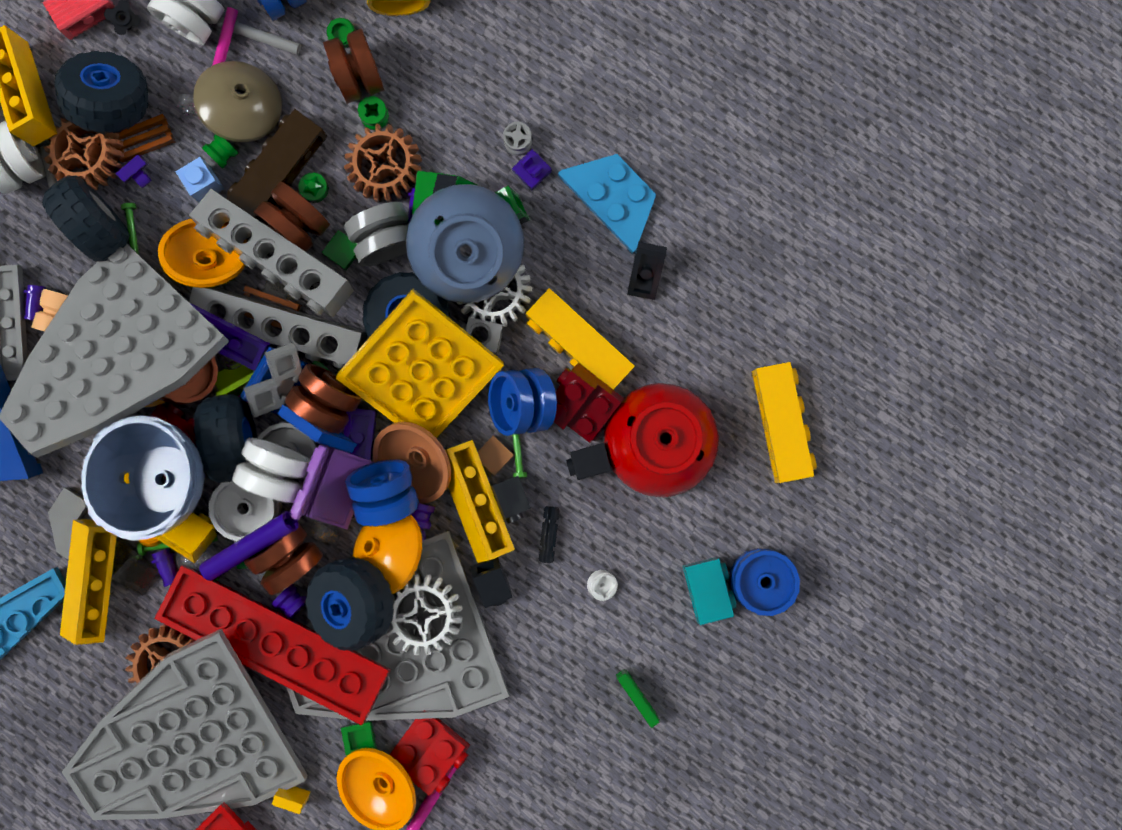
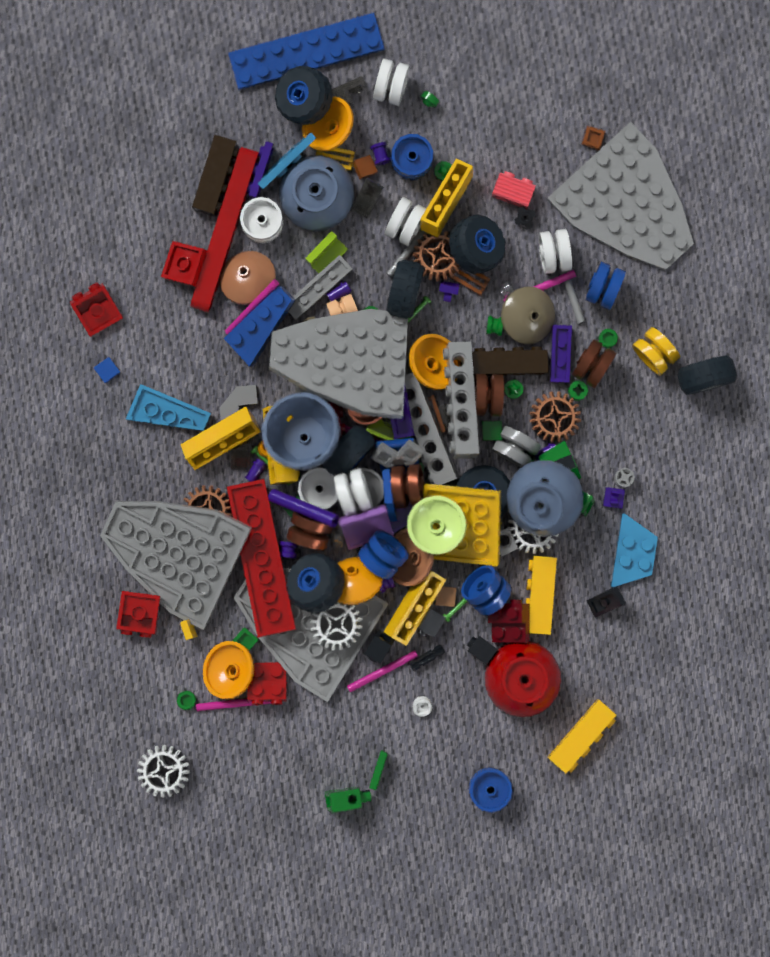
camera: 55 degrees right, 0 degrees up
(199, 179) = (470, 328): light blue brick -> none
(315, 100) = (560, 354): none -> dark purple plate
(373, 396) = (441, 511): none -> yellowish green dish
(524, 600) = (382, 671): none -> dark pink bar
(638, 778) = (338, 799): none -> green torso
(709, 590) = (463, 764): teal brick -> none

